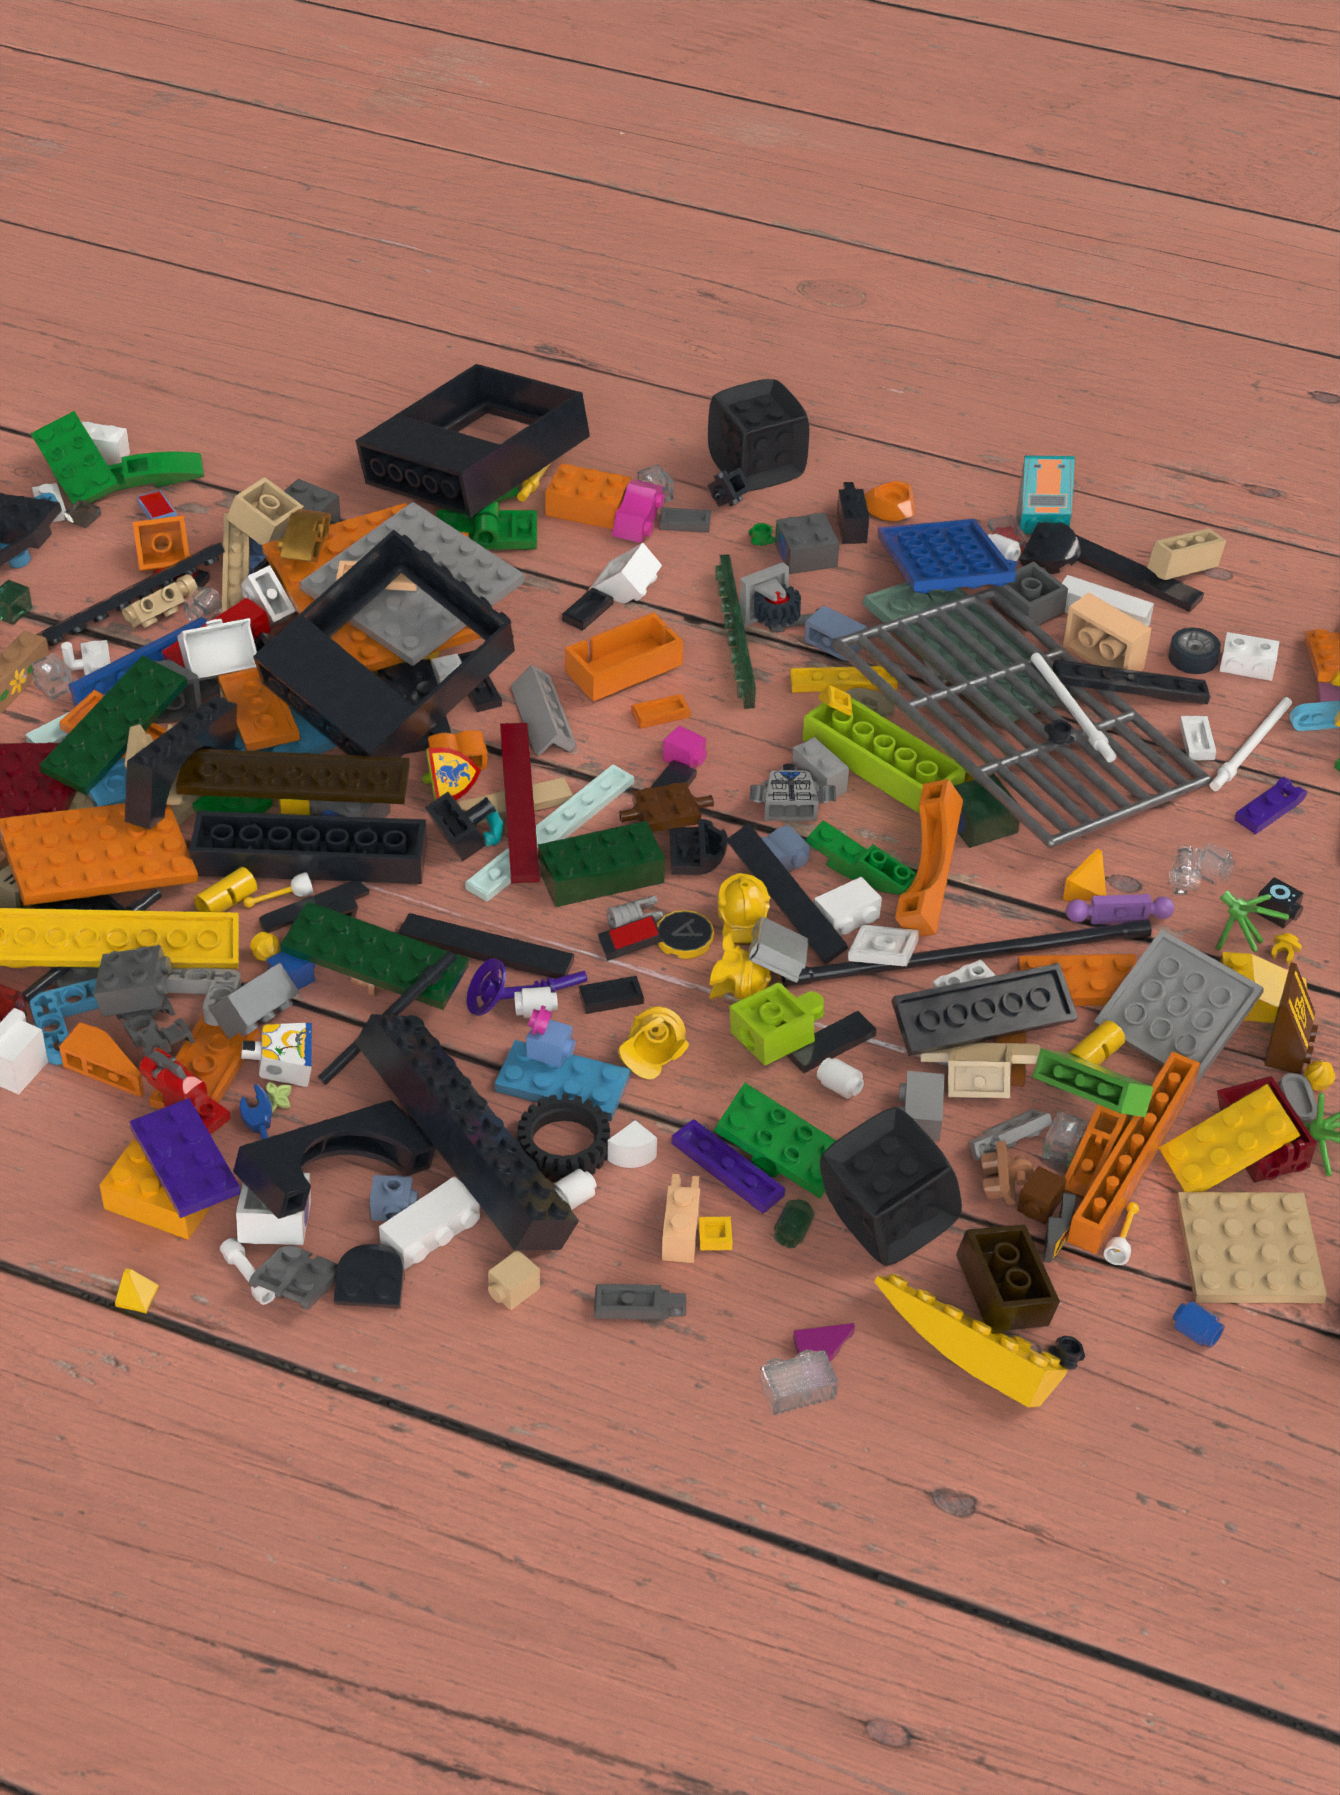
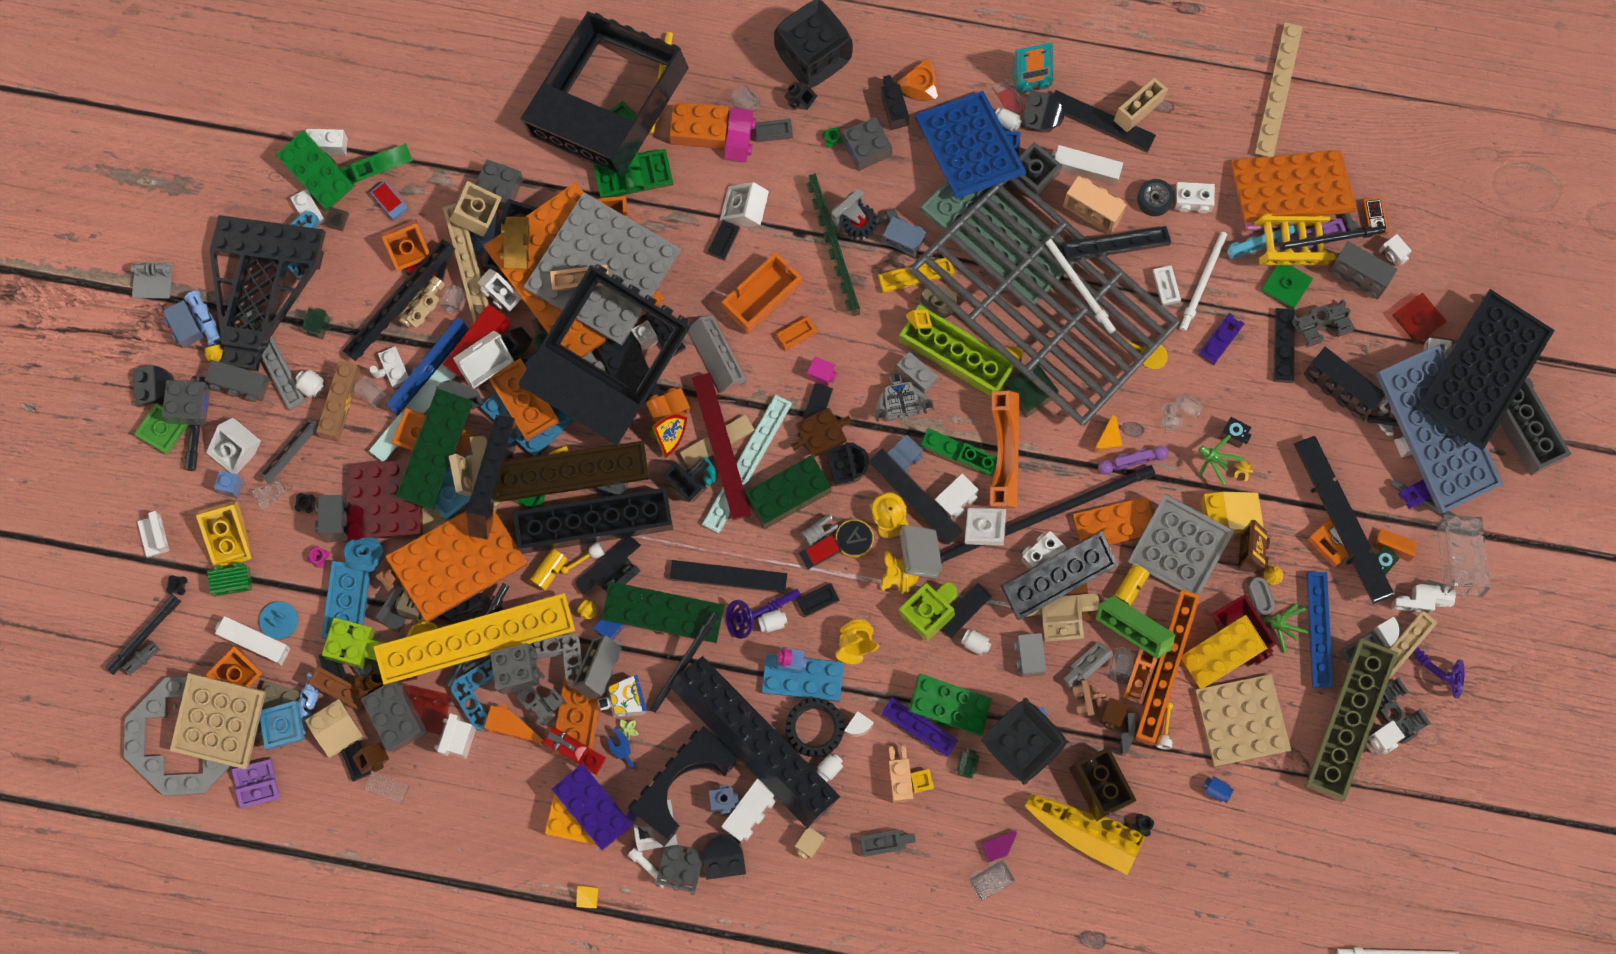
camera: 10 degrees left, 30 degrees up
(1059, 732) = (1075, 313): black plate -> none
(1168, 813) = (1156, 360): none -> yellow piece

